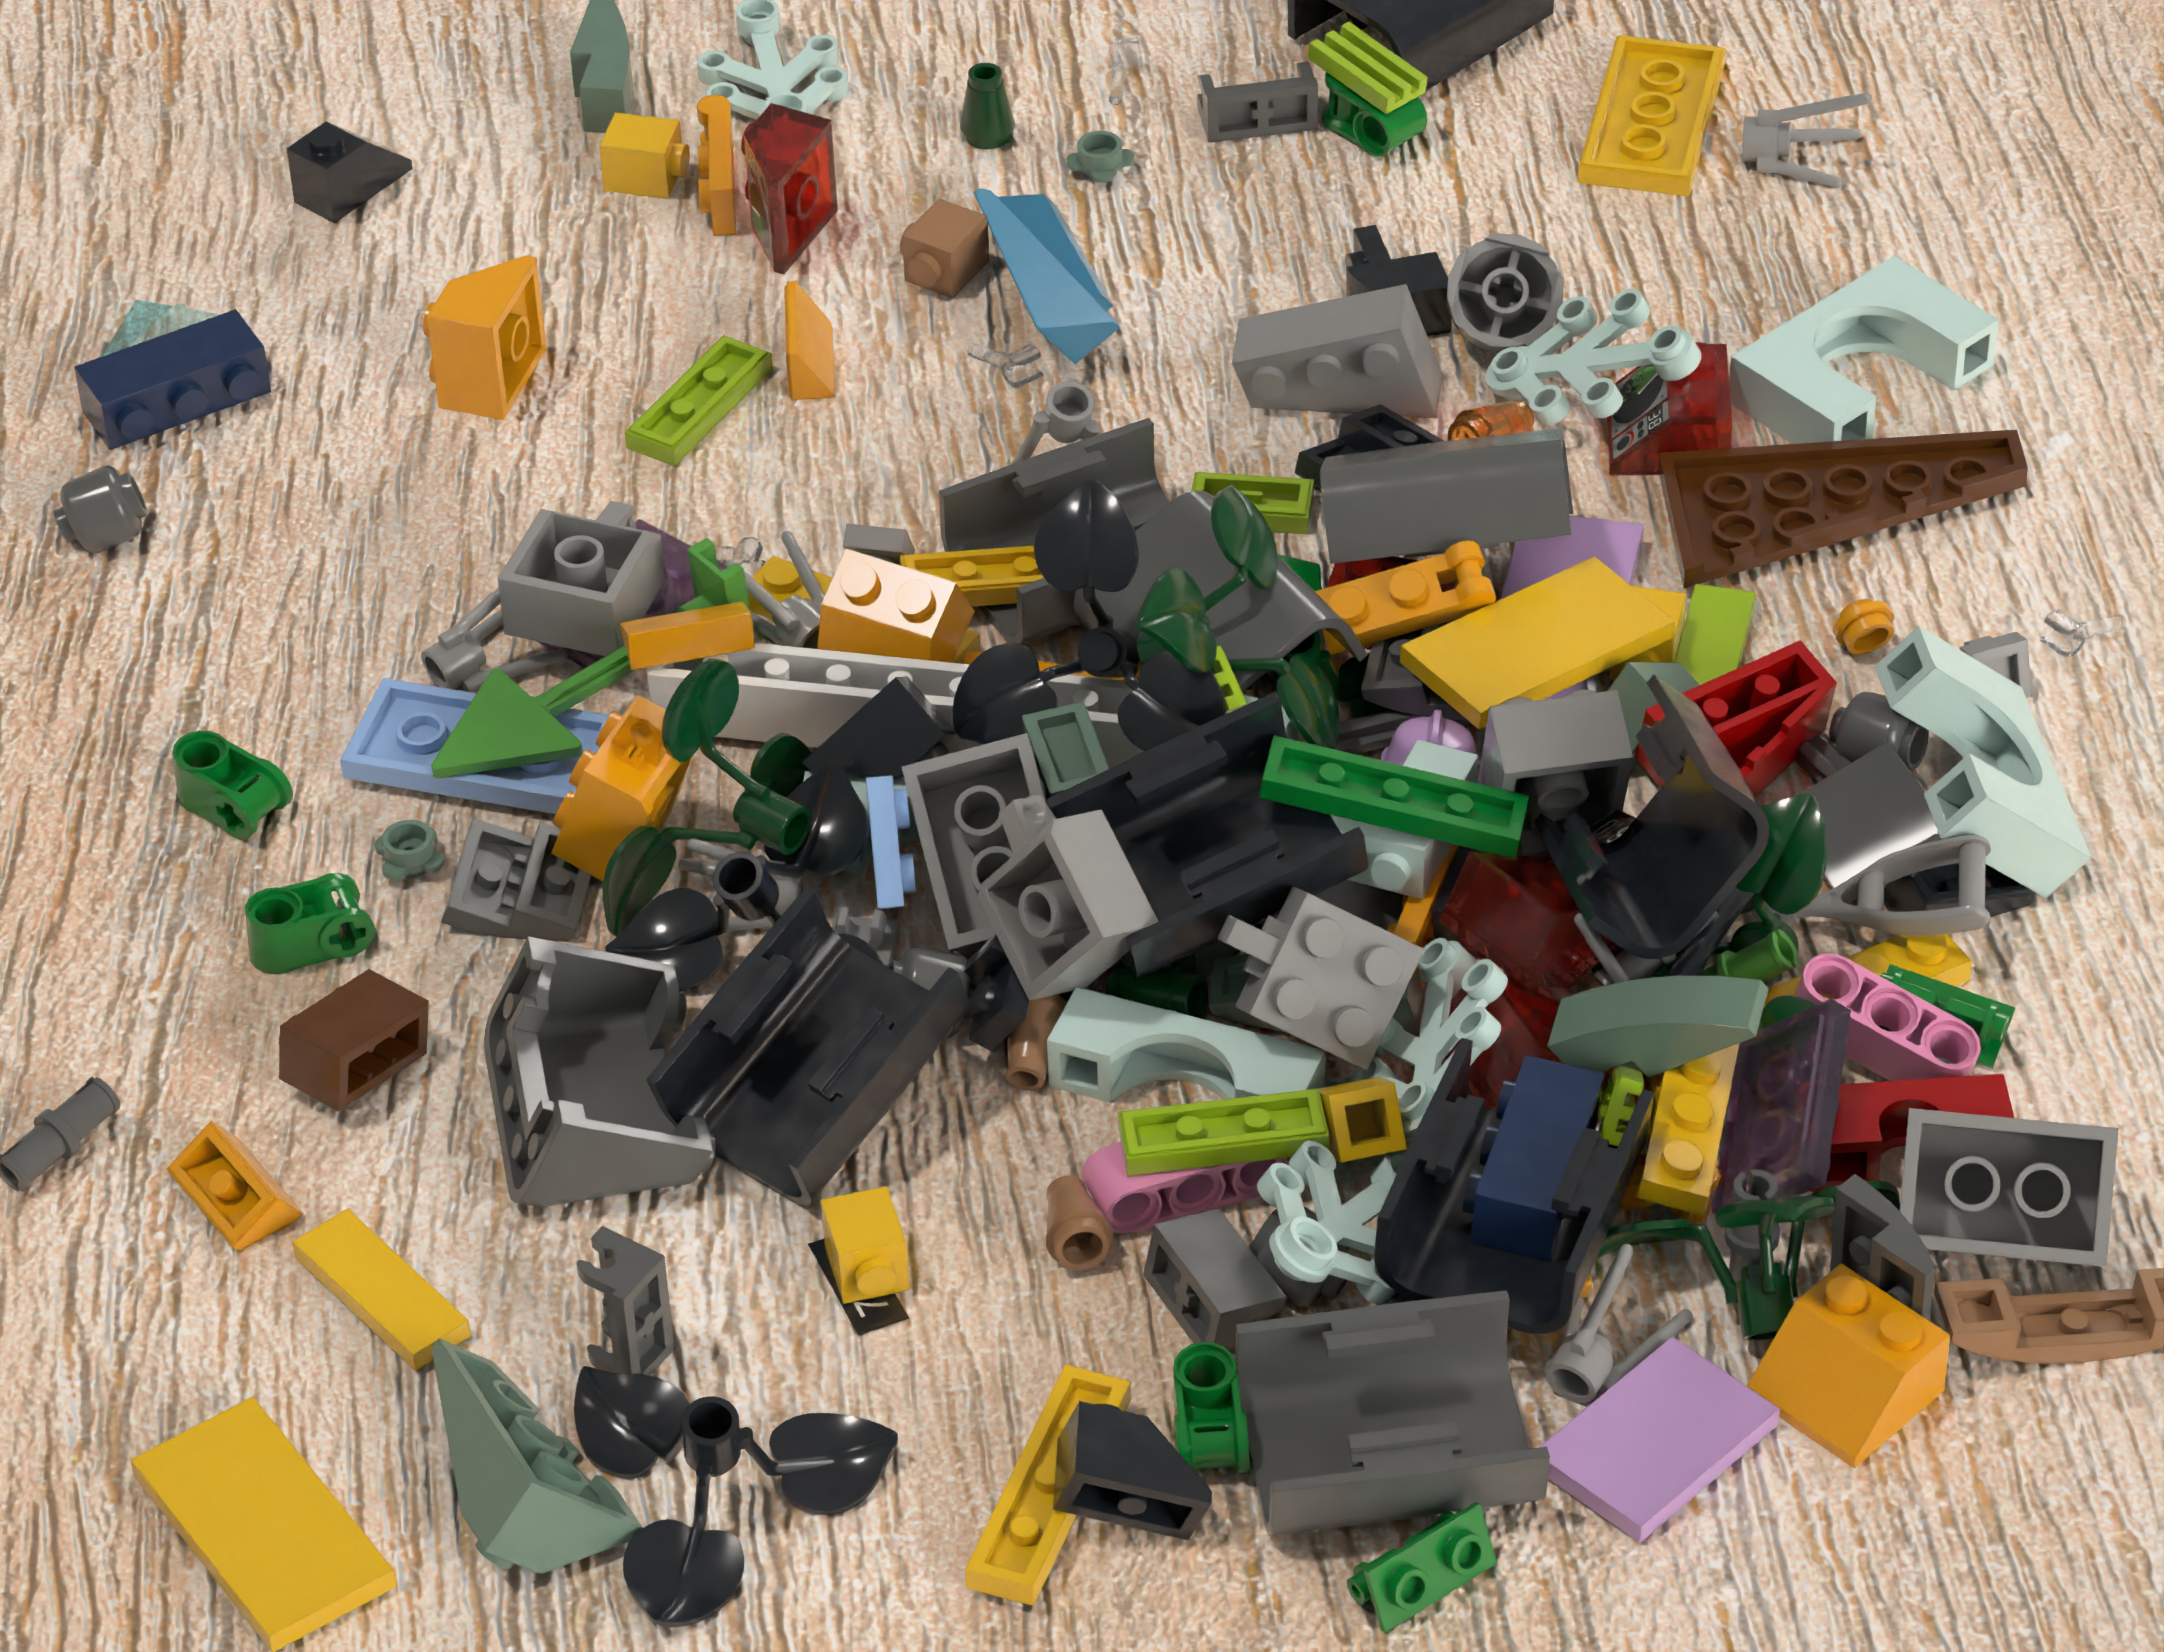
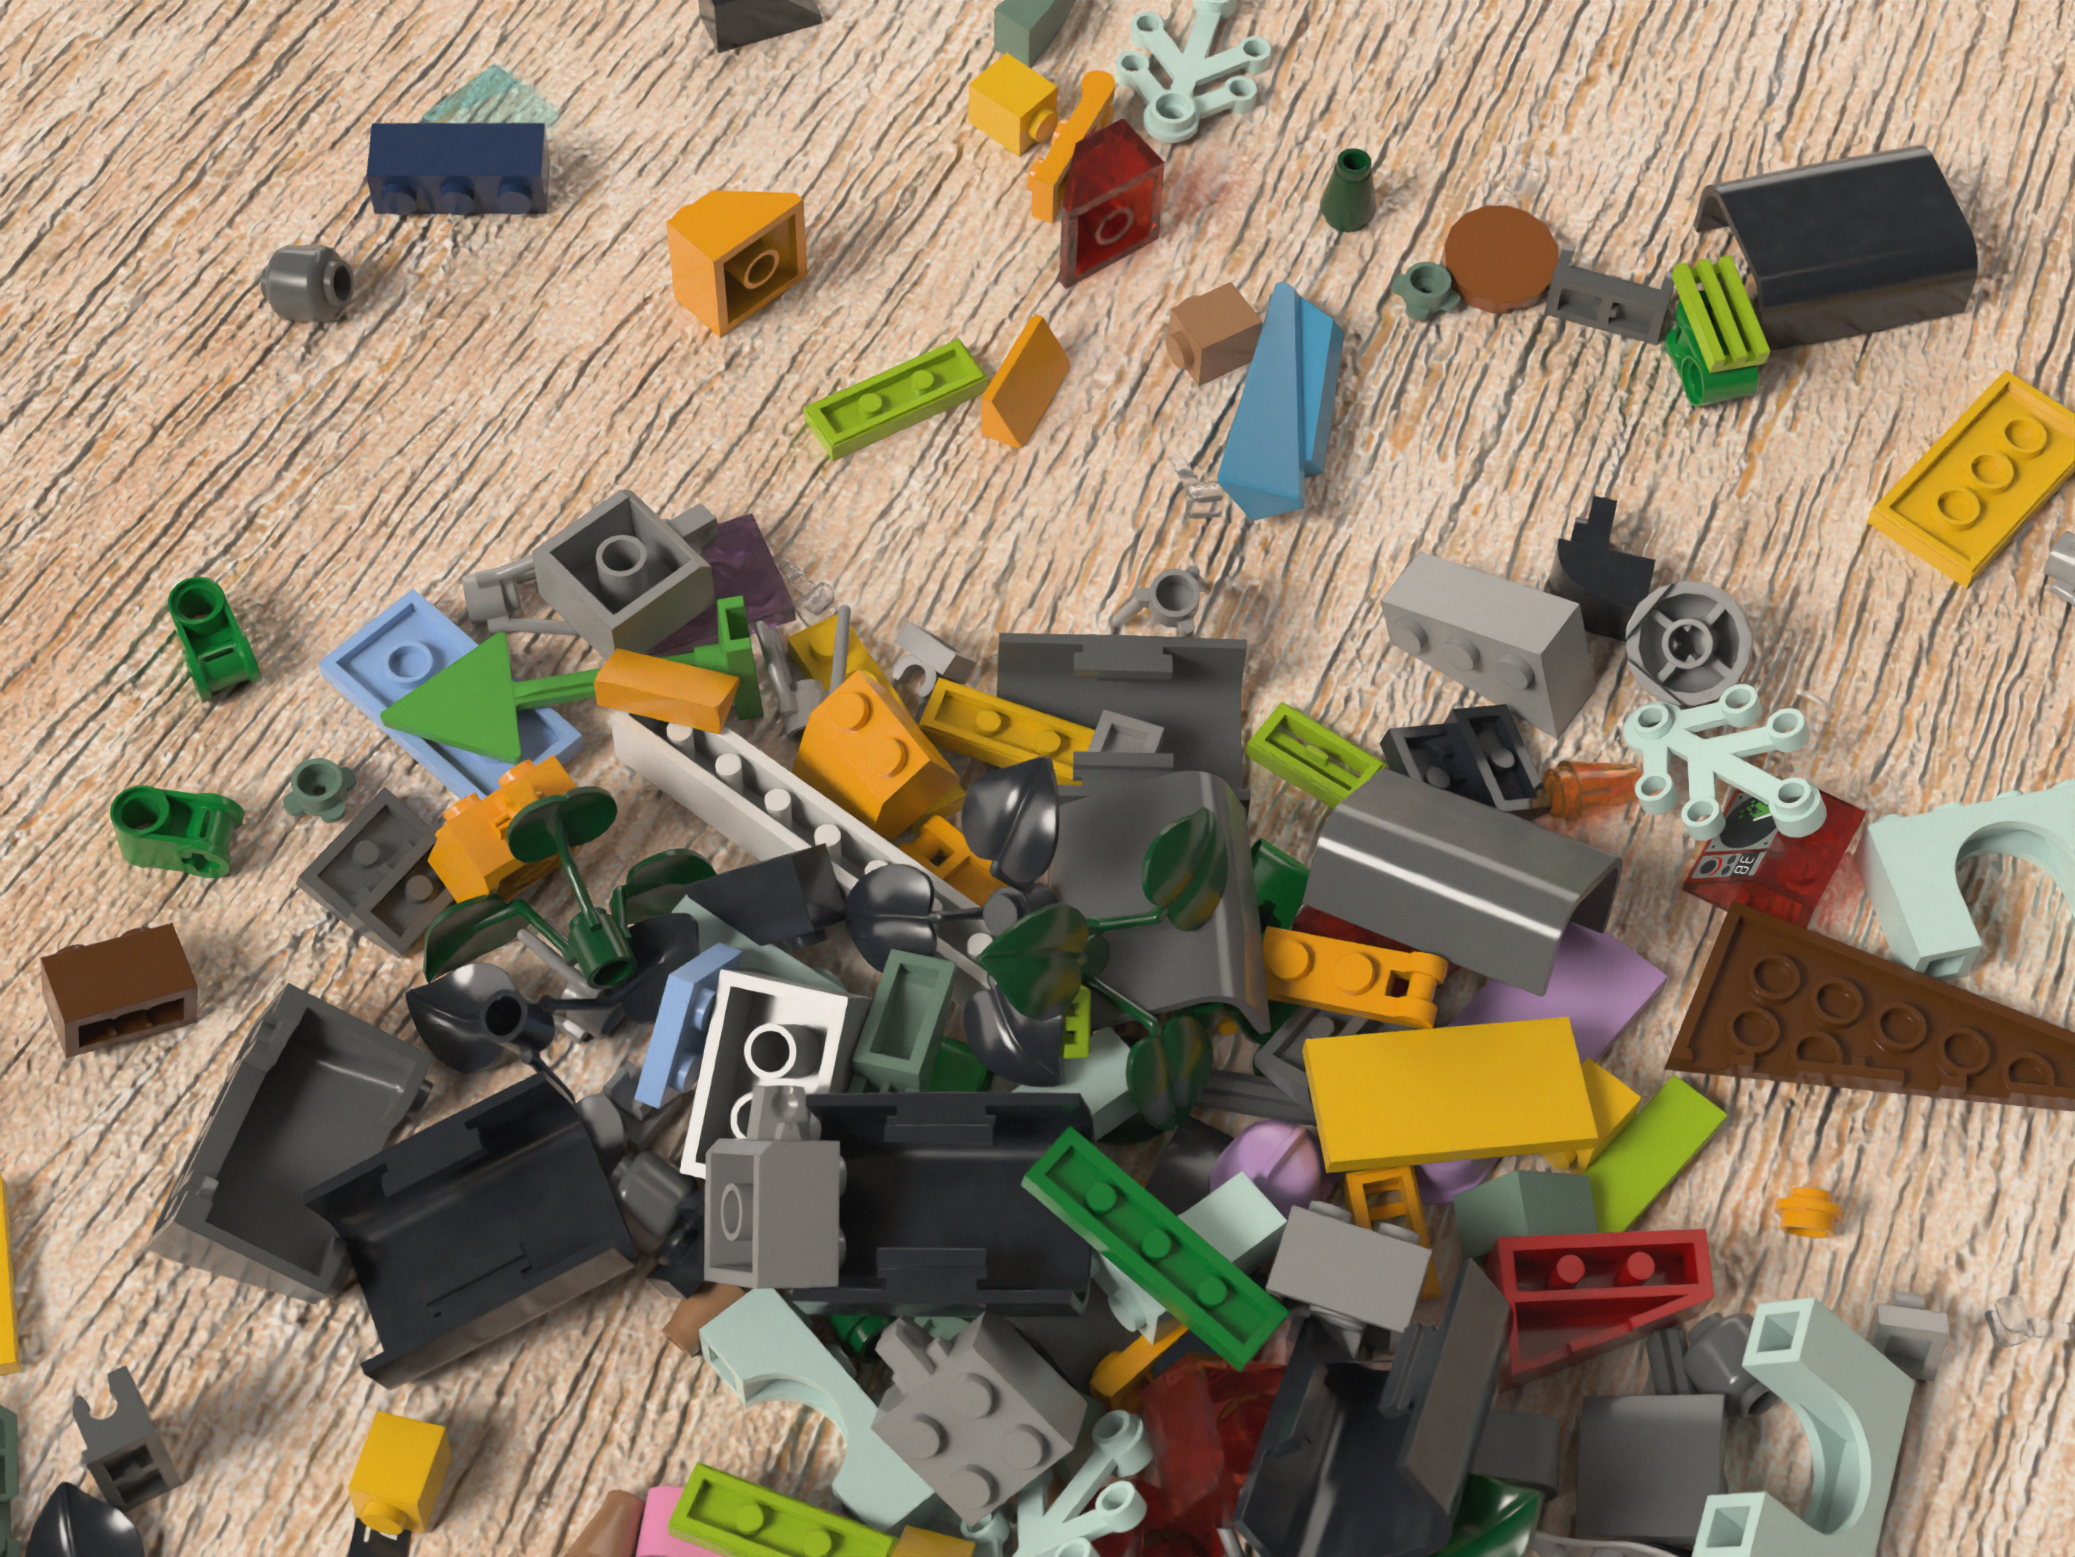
camera: 25 degrees right, 15 degrees up
(1148, 111) = (1500, 258): none -> dark orange tile

